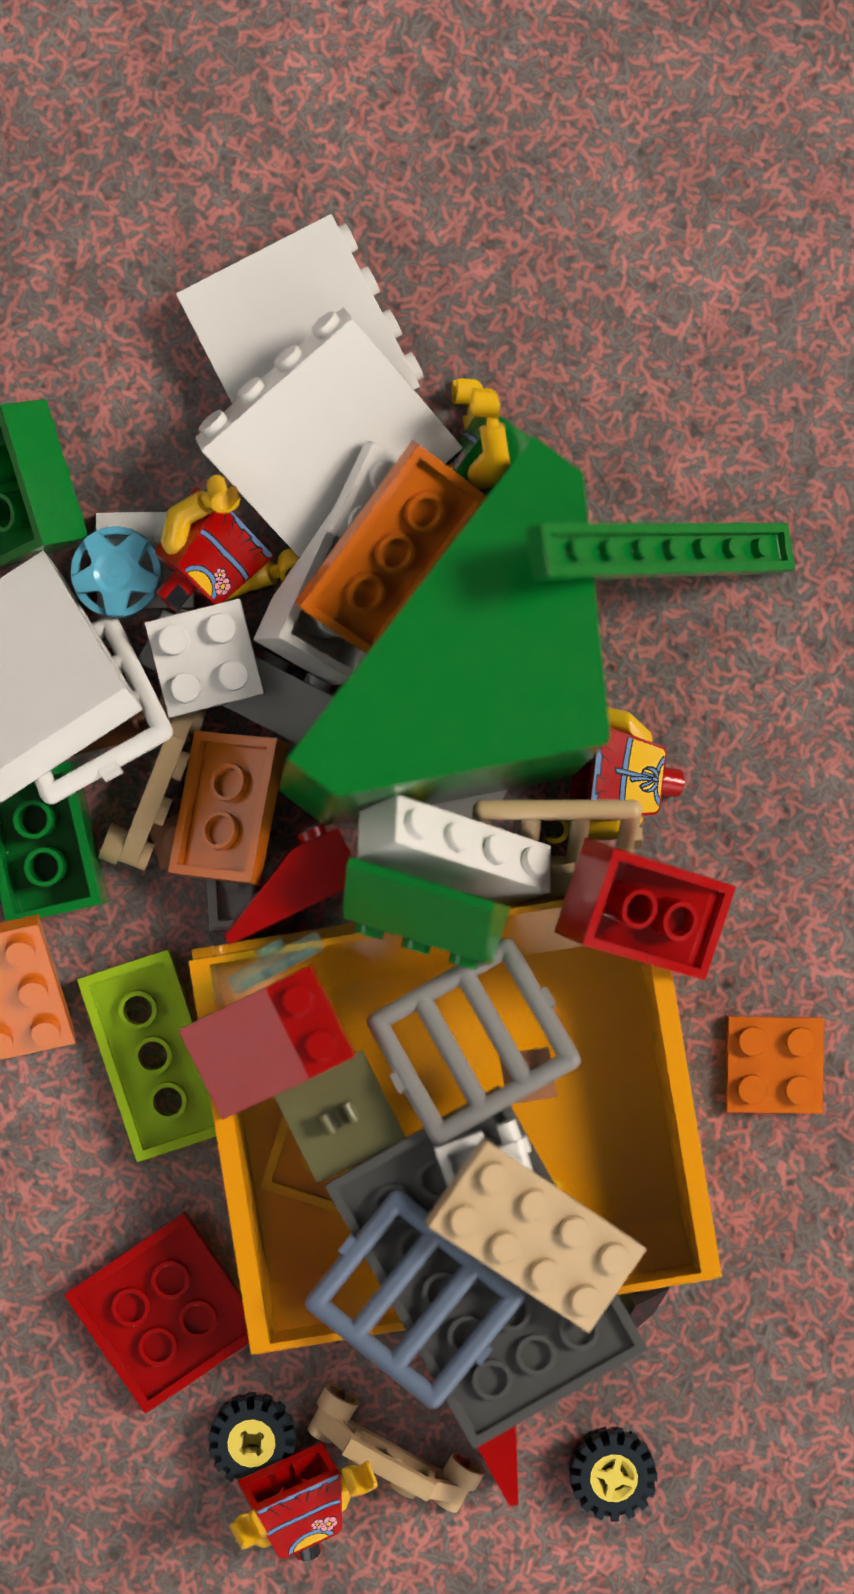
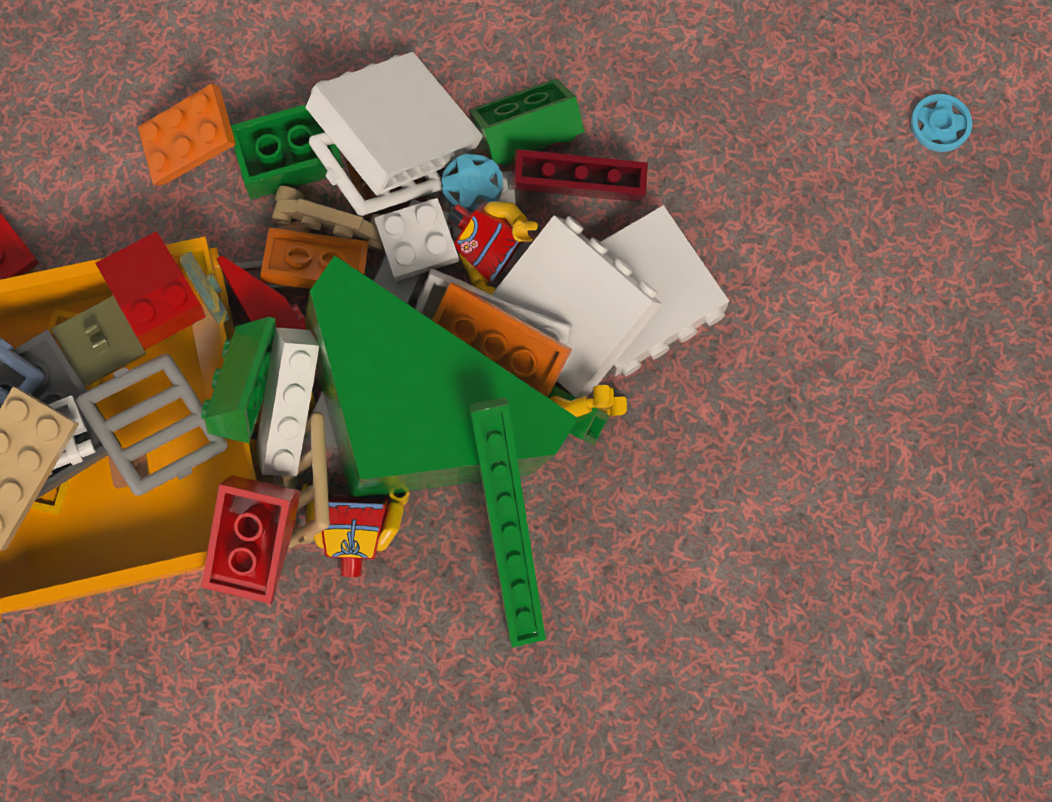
camera: 80 degrees right, 15 degrees down
(120, 413) = (579, 175): none -> dark red brick
(120, 1045) = (151, 212): lime plate -> none
(774, 1064) = (148, 662): orange plate -> none

